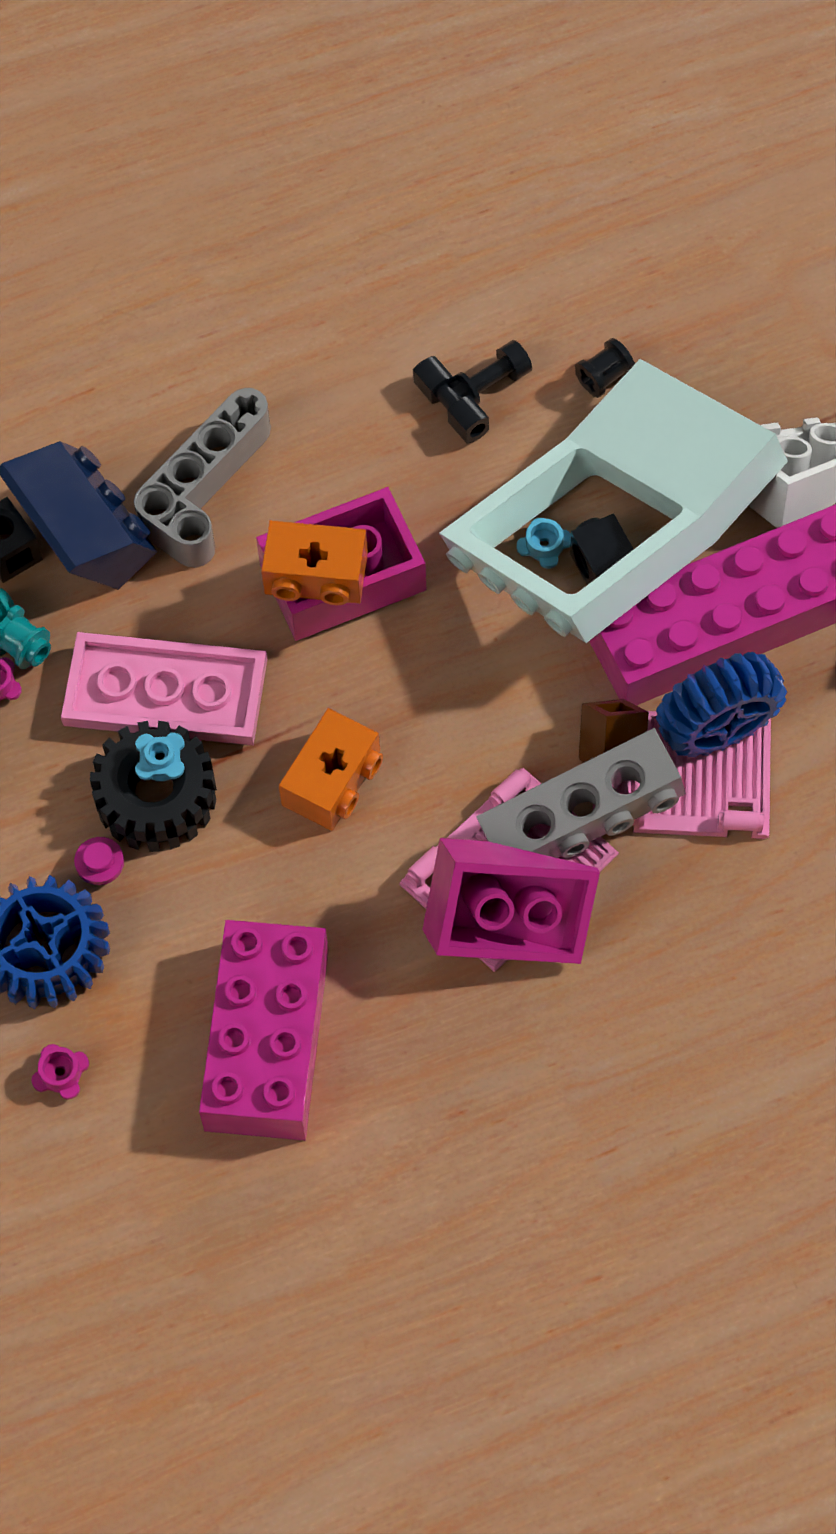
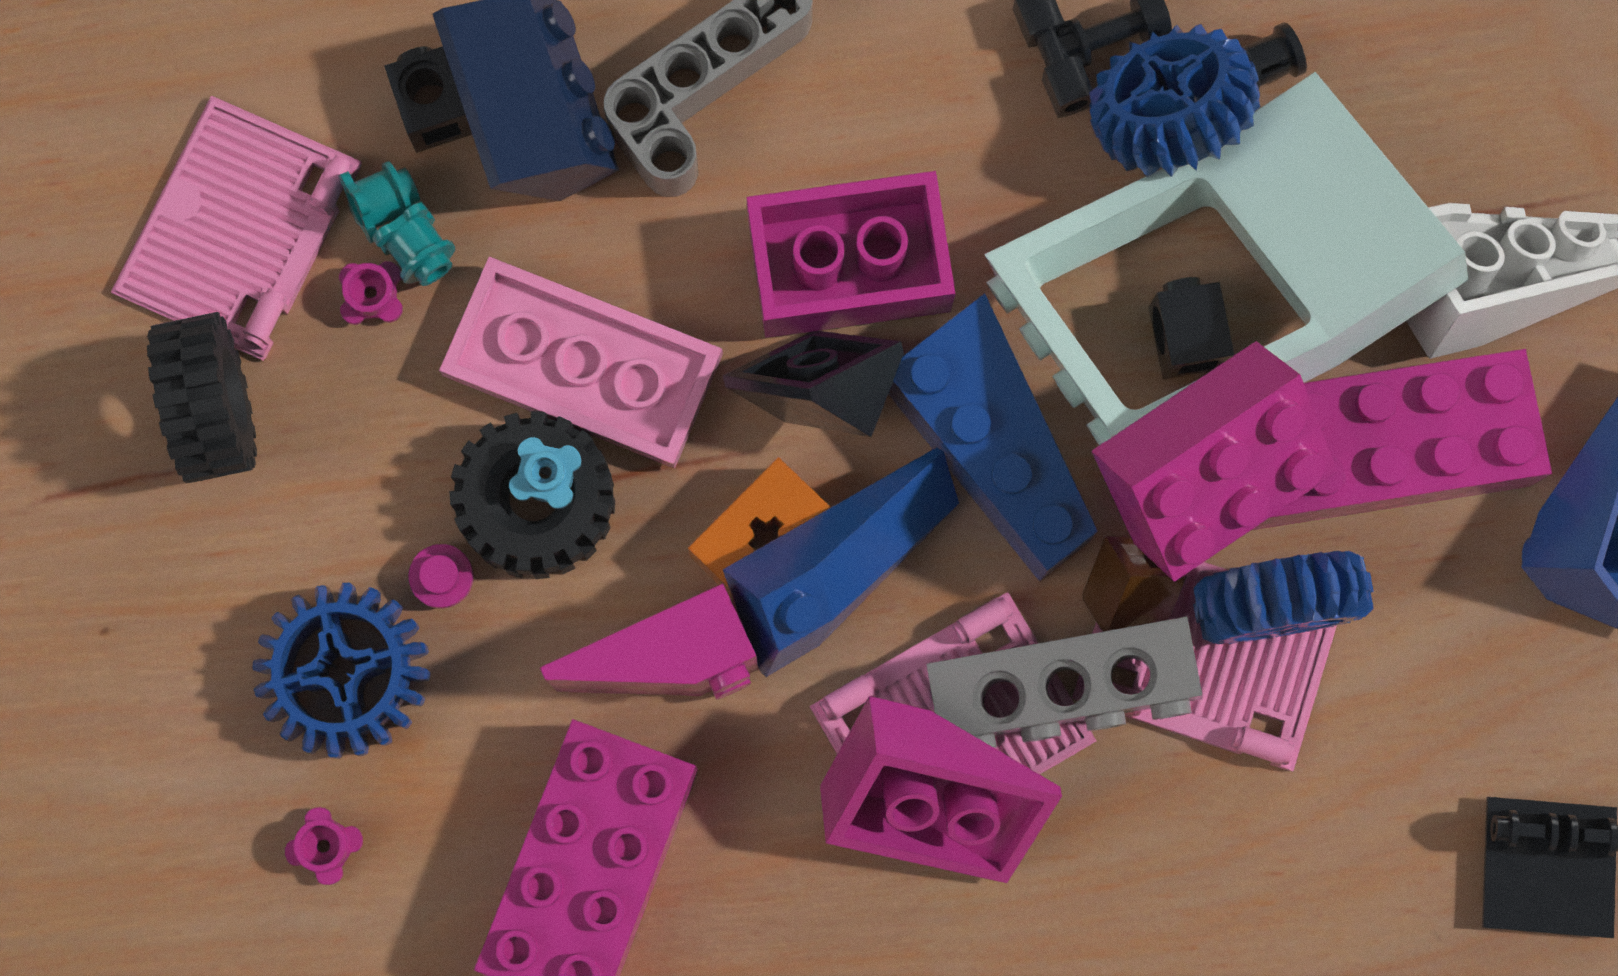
camera: 10 degrees right, 15 degrees up
(279, 863) = (675, 652): none -> dark pink slope
(297, 547) = (789, 236): orange brick -> none
(345, 653) = (822, 381): none -> black slope
(385, 776) = (821, 571): none -> blue wedge
(481, 661) = (978, 409): none -> blue wedge
(544, 530) = (1122, 269): medium azure plate -> none
(545, 403) = (1174, 100): none -> blue gear
(641, 611) = (1215, 460): none -> dark pink brick

